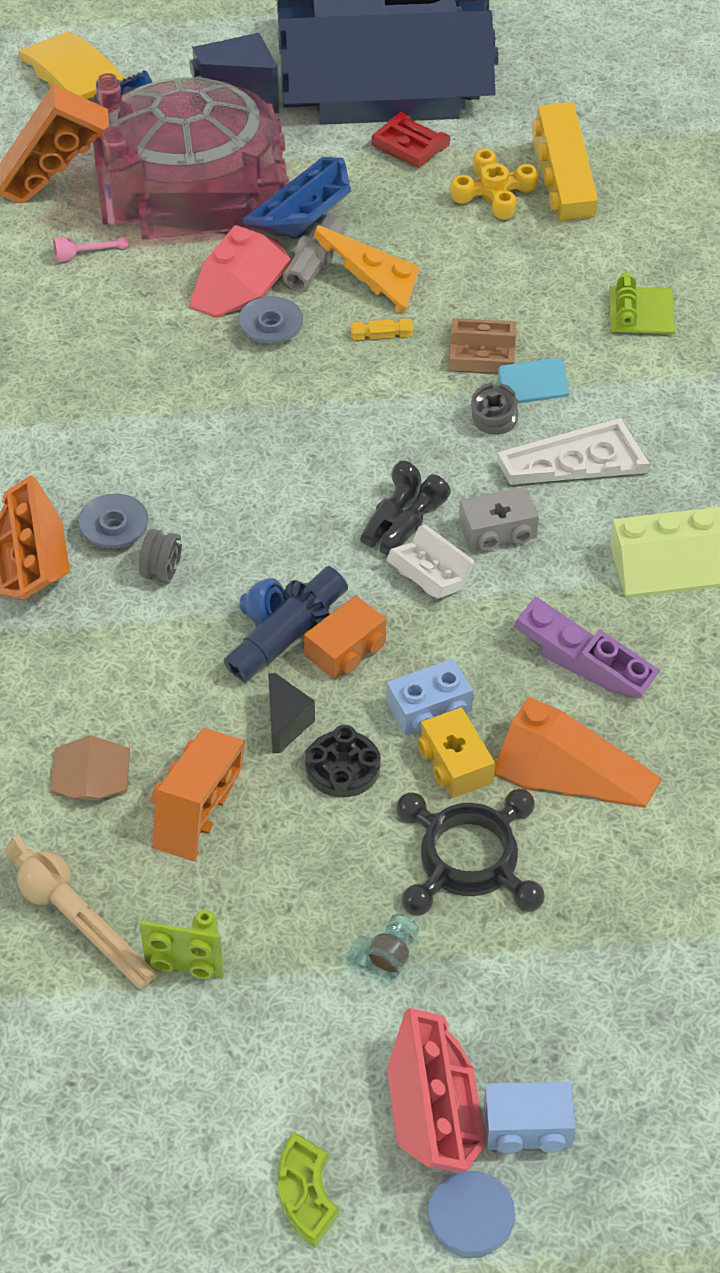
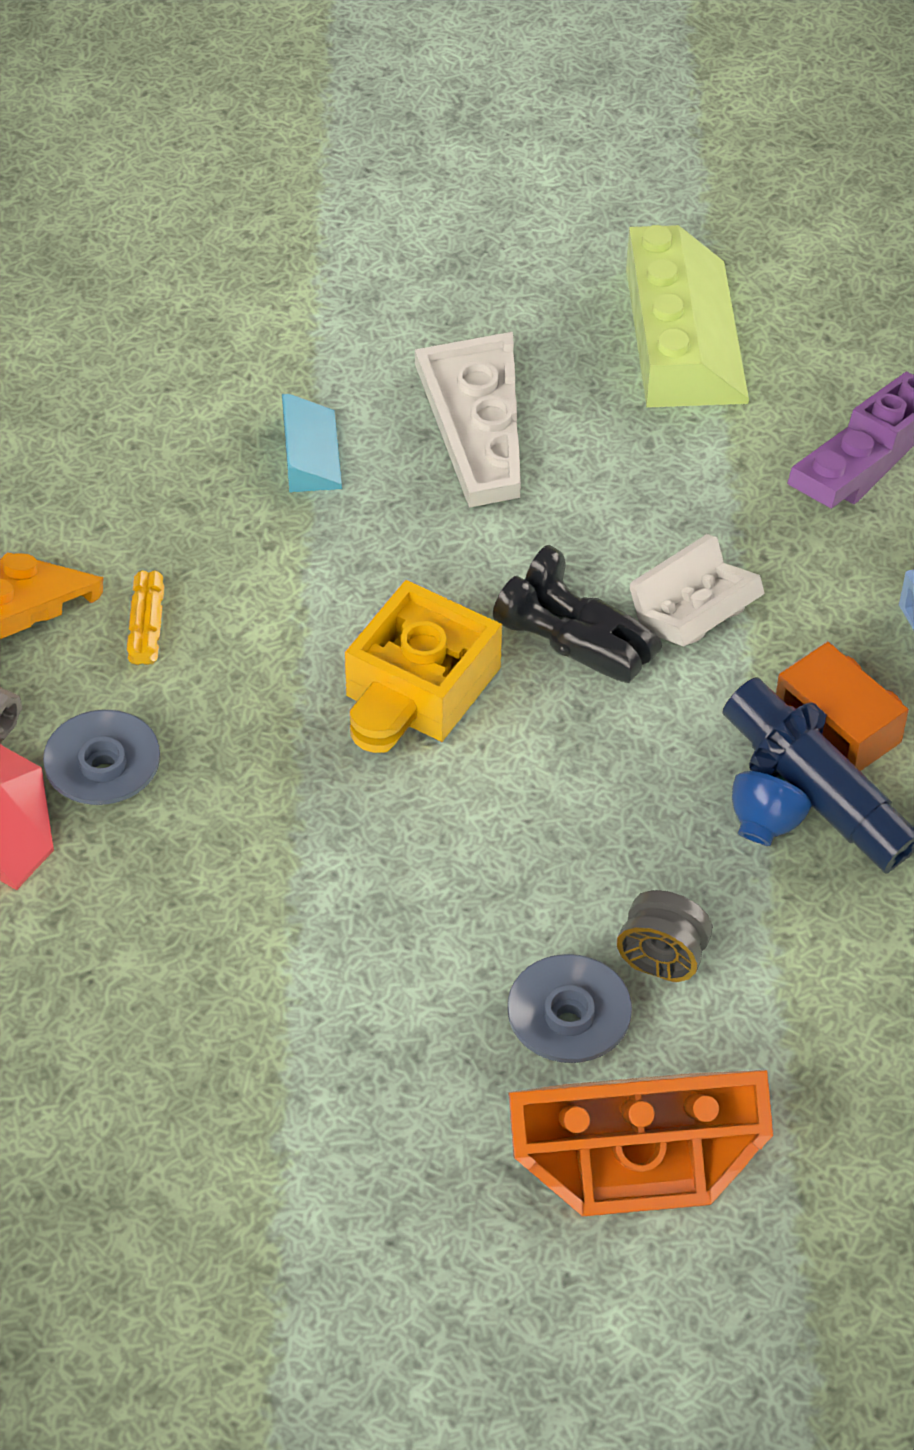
camera: 85 degrees left, 0 degrees up
(345, 436) = (418, 667): none -> yellow brick
(481, 345) = (209, 496): medium nougat slope -> none
(494, 408) = (370, 488): dark grey wheel -> none
(498, 519) = (609, 508): light grey brick -> none
(640, 308) = (166, 307): lime hinge -> none

